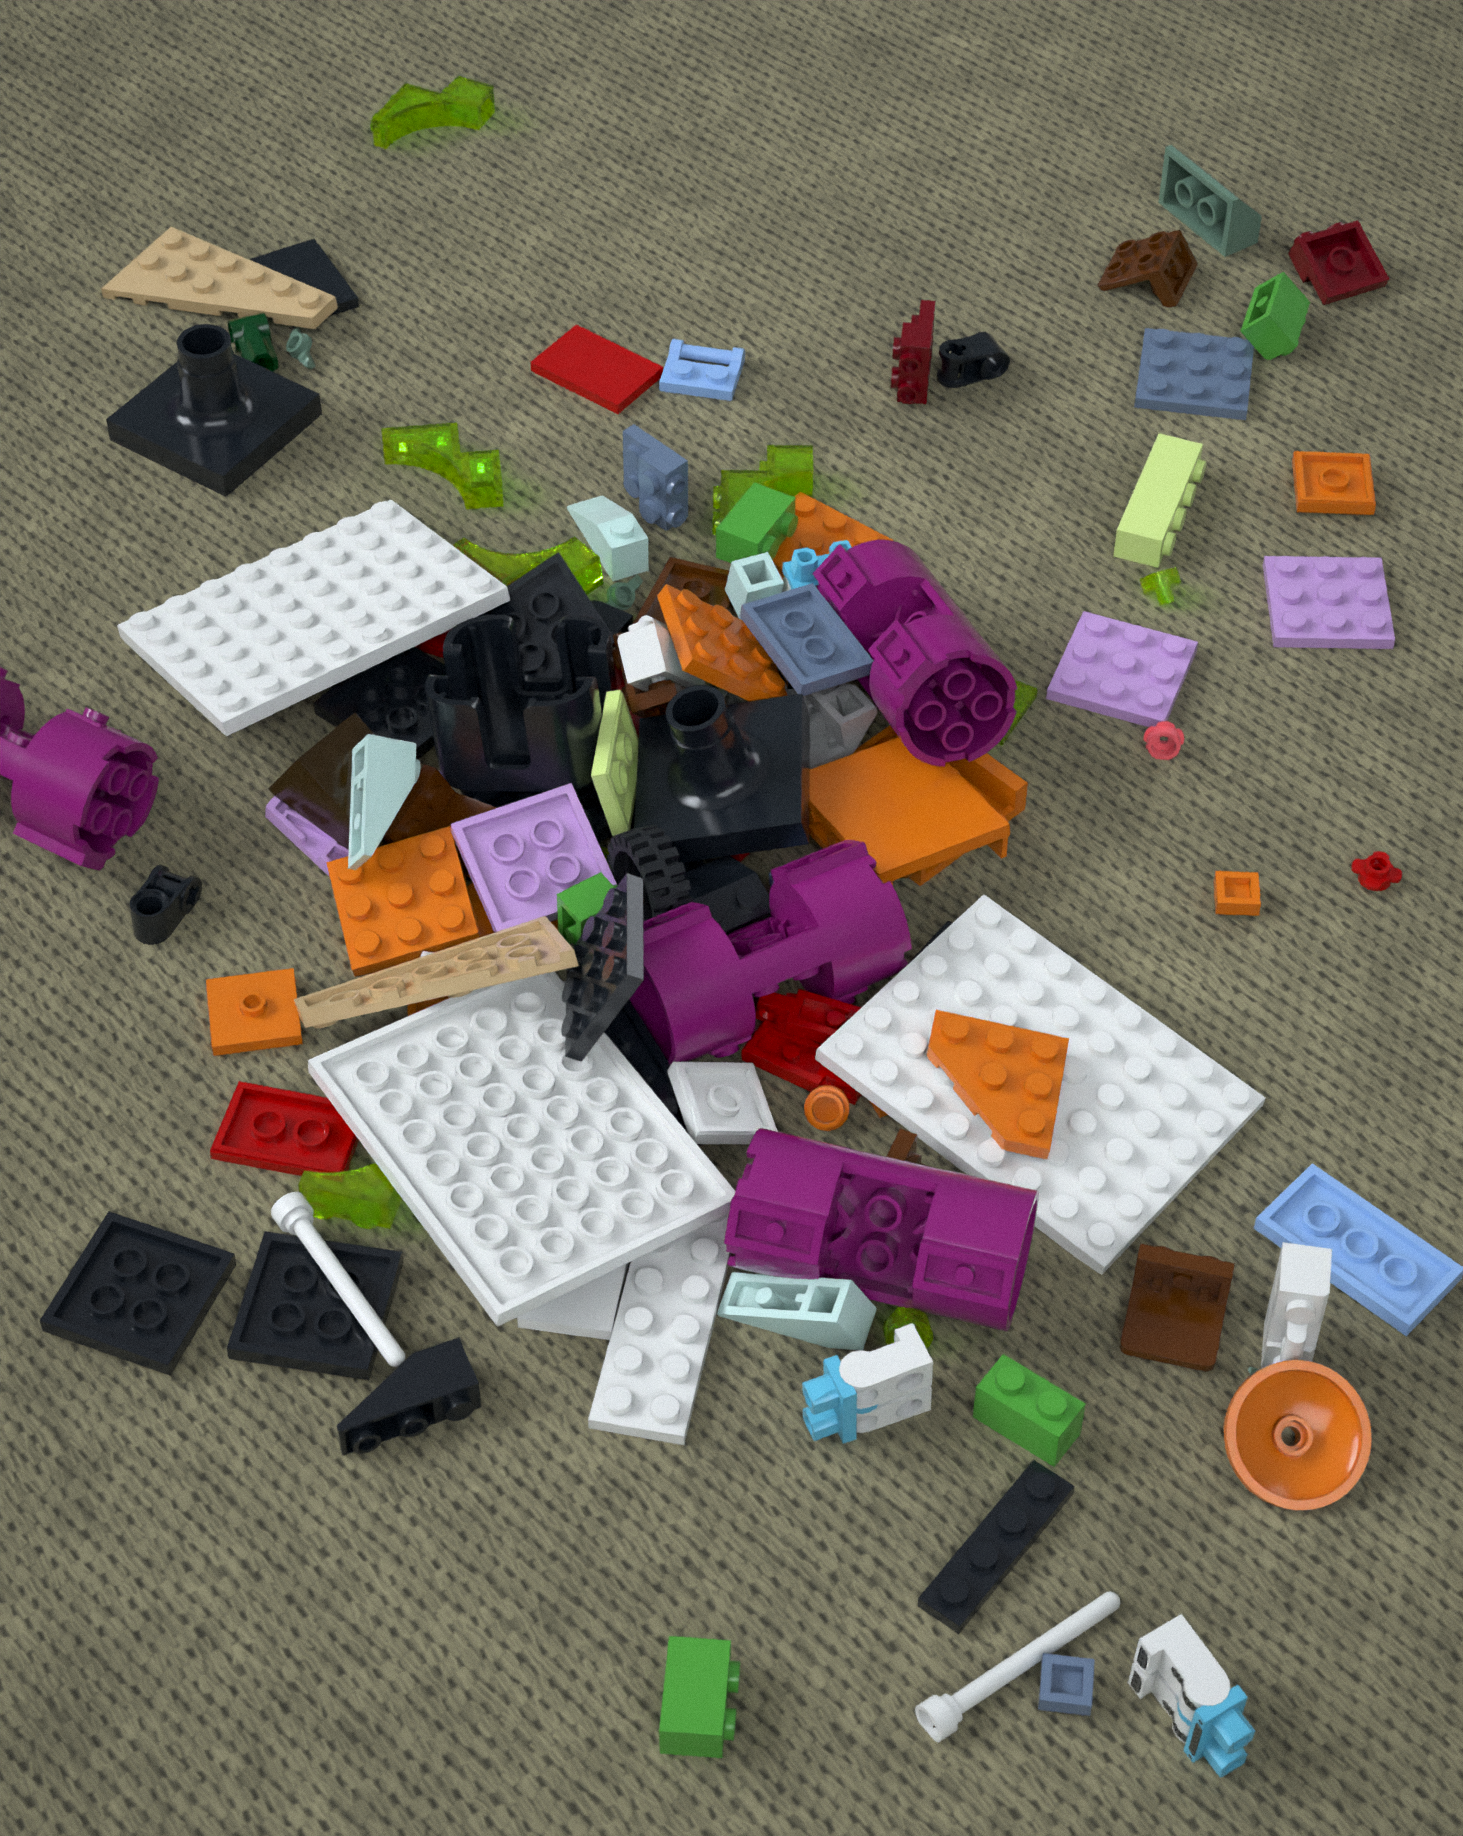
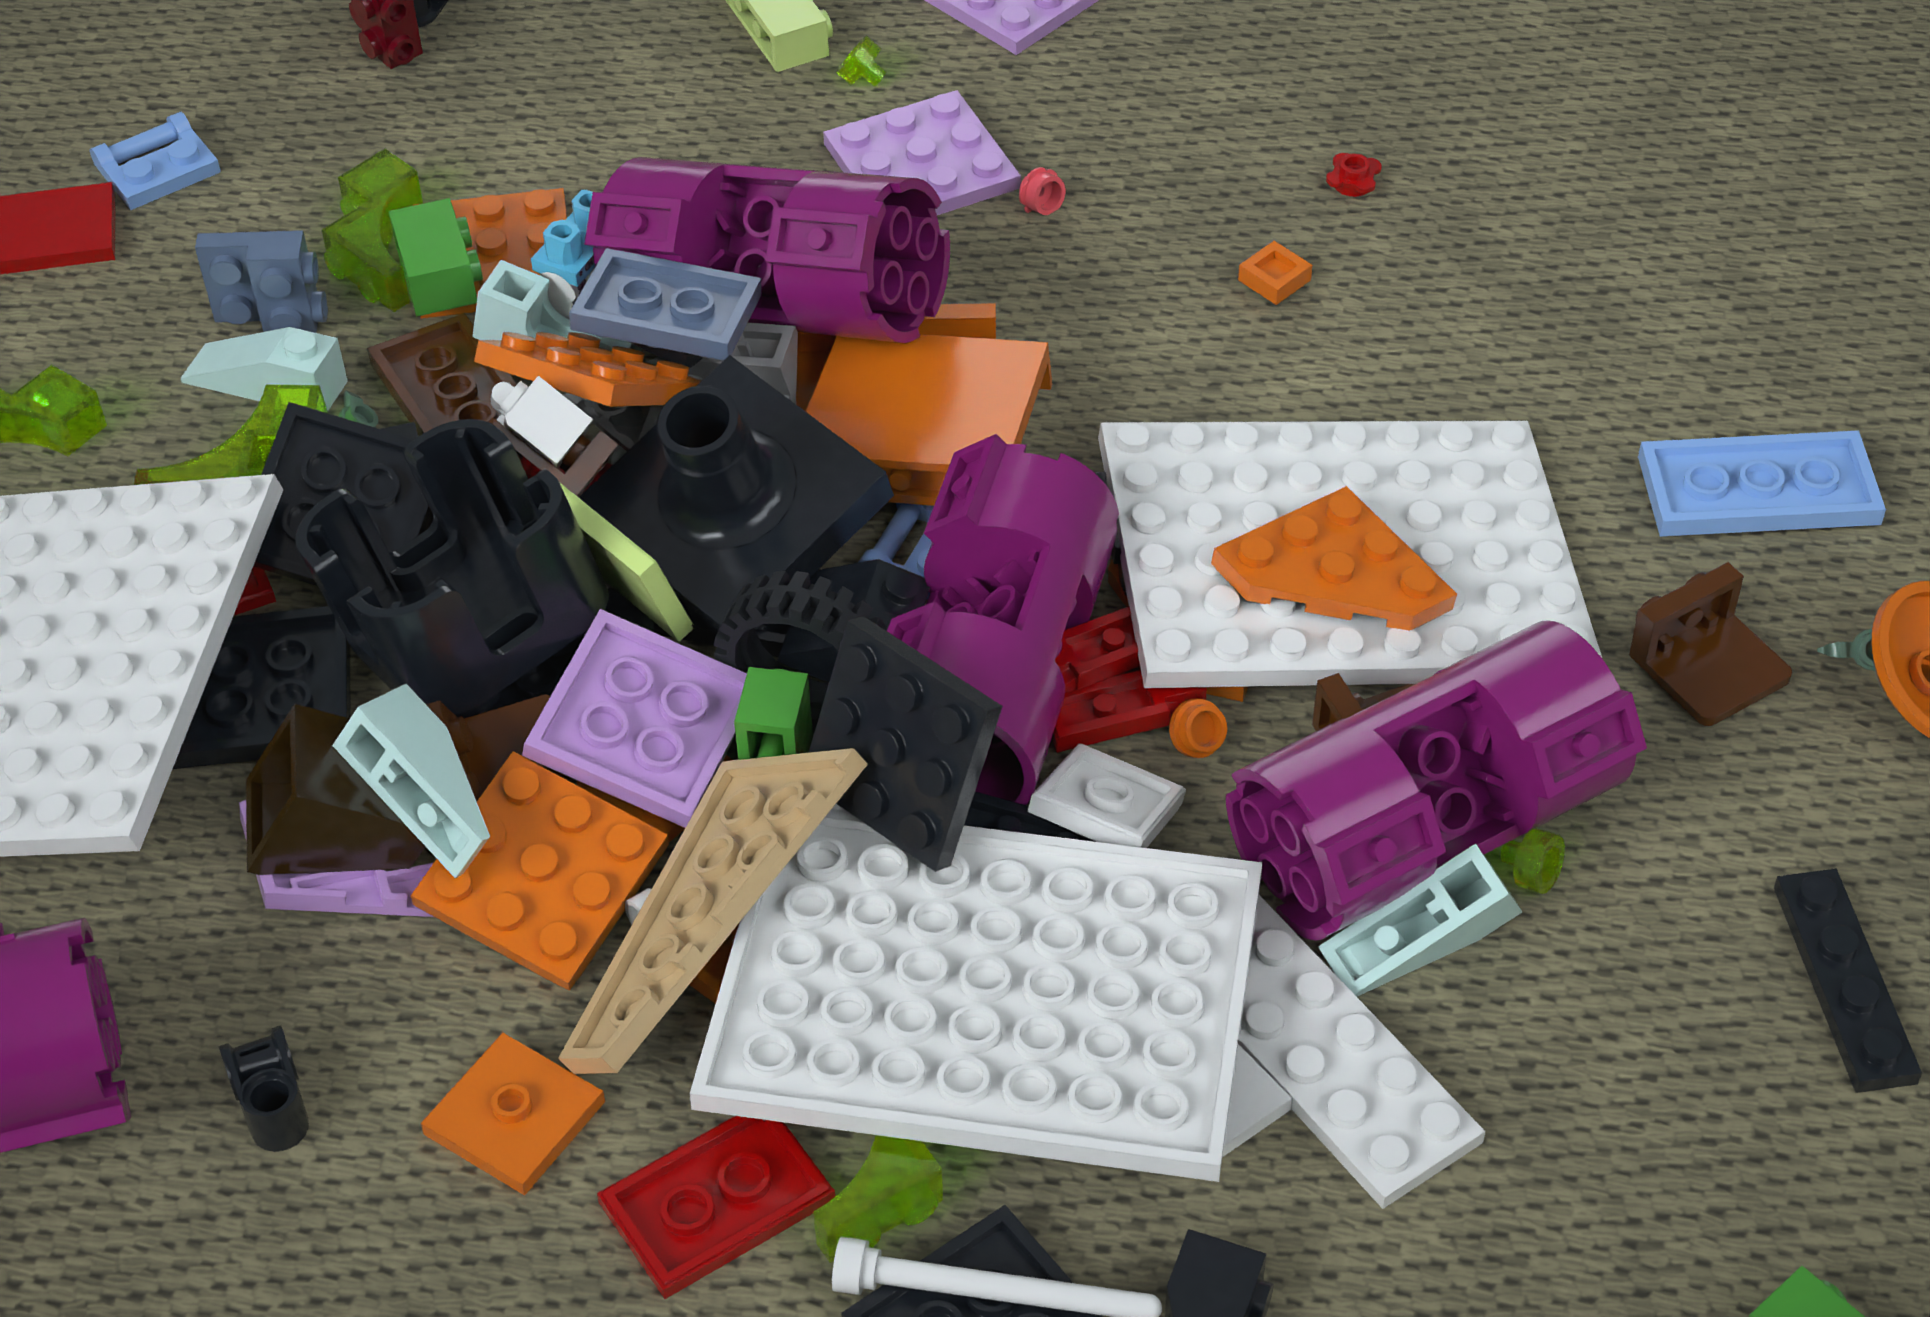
camera: 45 degrees left, 0 degrees up
(870, 1388) = (1595, 931): white hips -> none
(1028, 1410) = (1725, 835): bright green brick -> none
(1296, 1303) = (1828, 560): white piece -> none

